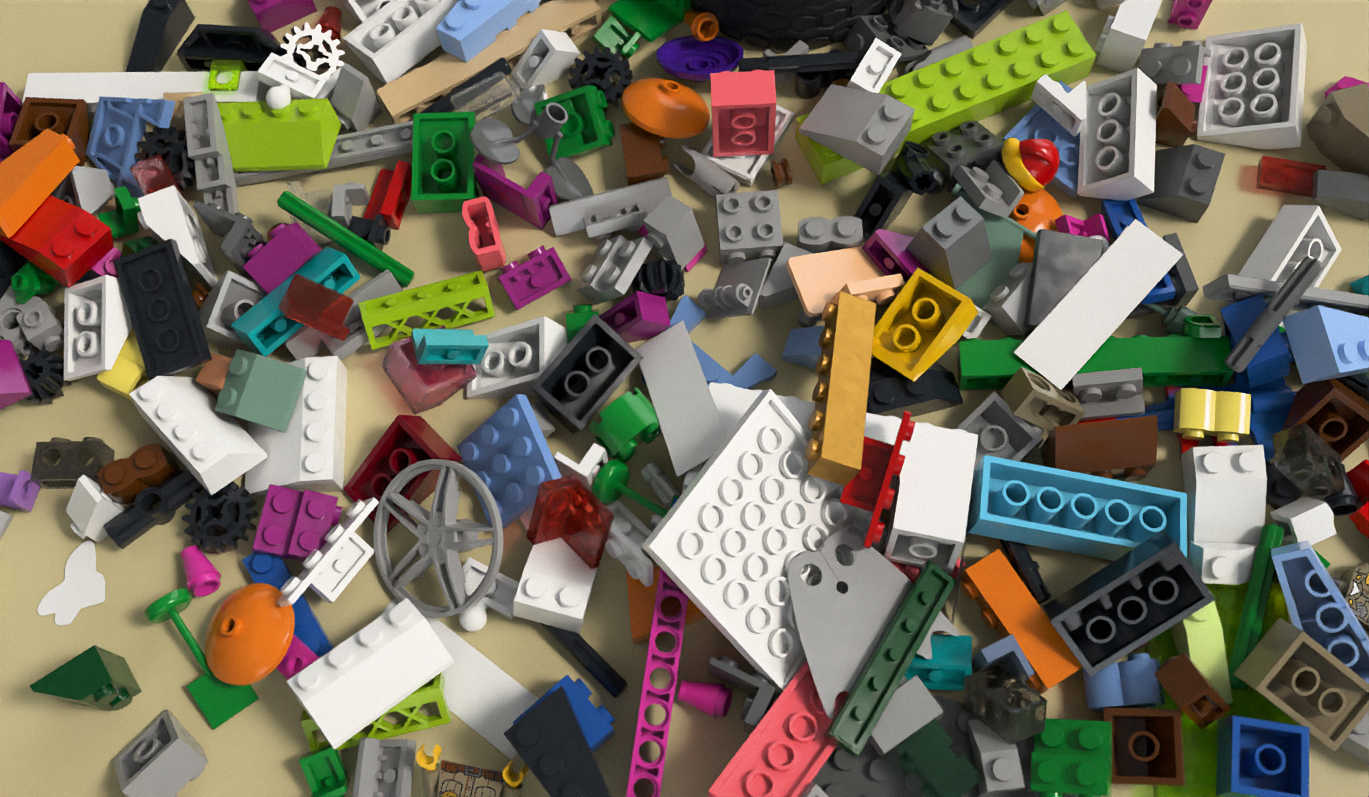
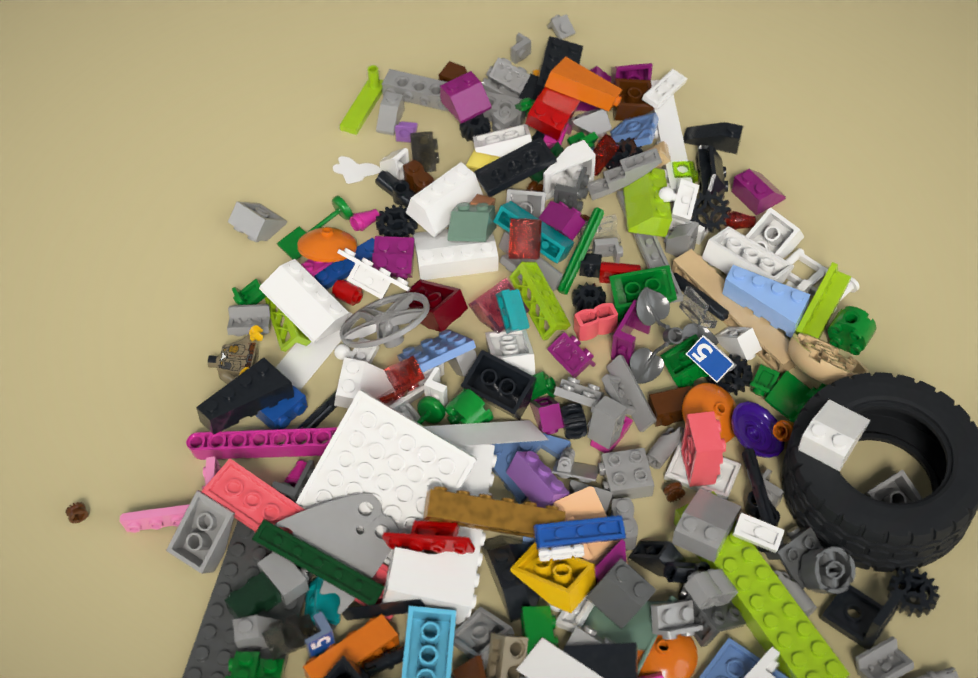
camera: 80 degrees right, 15 degrees down
(51, 80) = (664, 89): none -> white tile
(91, 680) = (297, 181): dark green slope -> none
(353, 604) = (347, 292): none -> red brick
(446, 243) = (588, 297): none -> black gear
(591, 83) = (710, 359): none -> blue panel
(764, 336) = (536, 479): none -> medium lavender brick
(870, 279) = (579, 532): none -> blue tile
(897, 307) = (561, 552): none -> white axle
(952, 137) = (710, 588): none -> light grey brick
(1031, 161) = (701, 645): piece -> none

